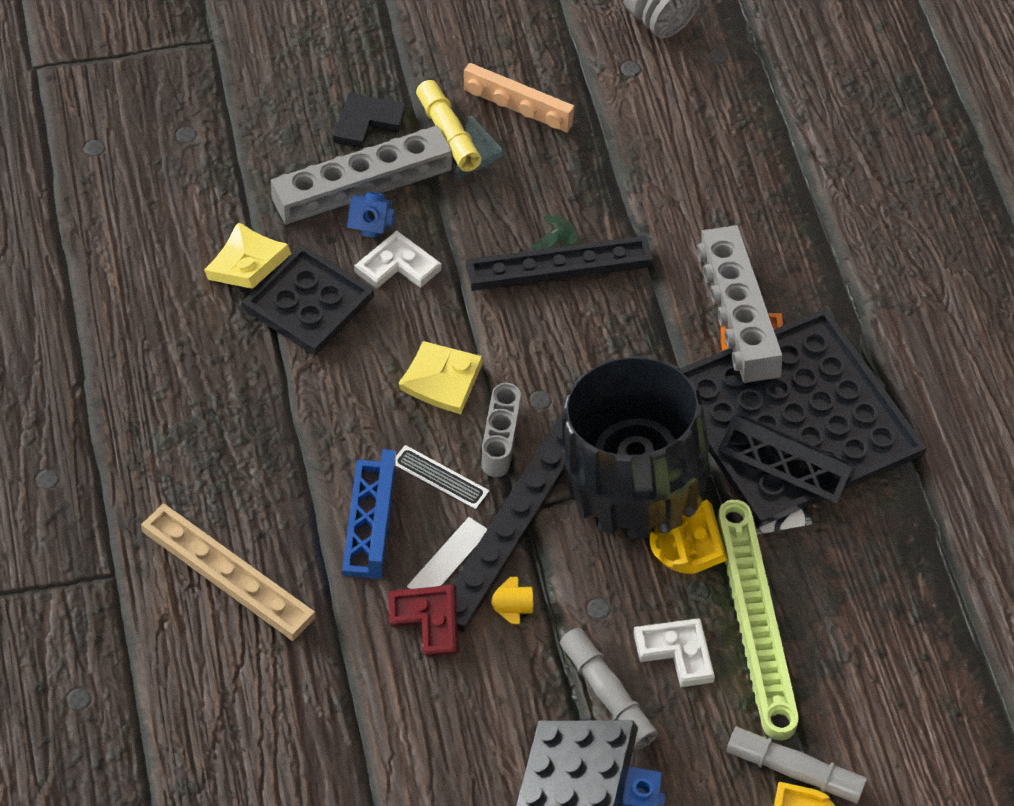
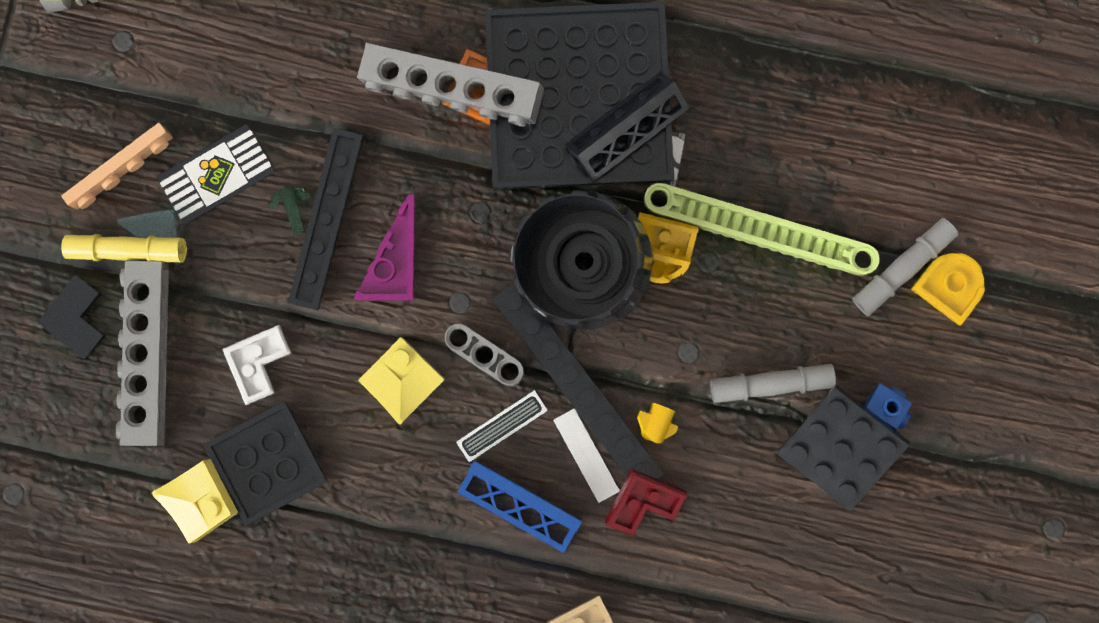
camera: 60 degrees left, 30 degrees up
(360, 217) = (198, 367): blue brick -> none
(547, 329) = (392, 271): none -> magenta wing
(552, 173) = (215, 174): none -> sticker
(680, 641) = (751, 301): white tile -> none

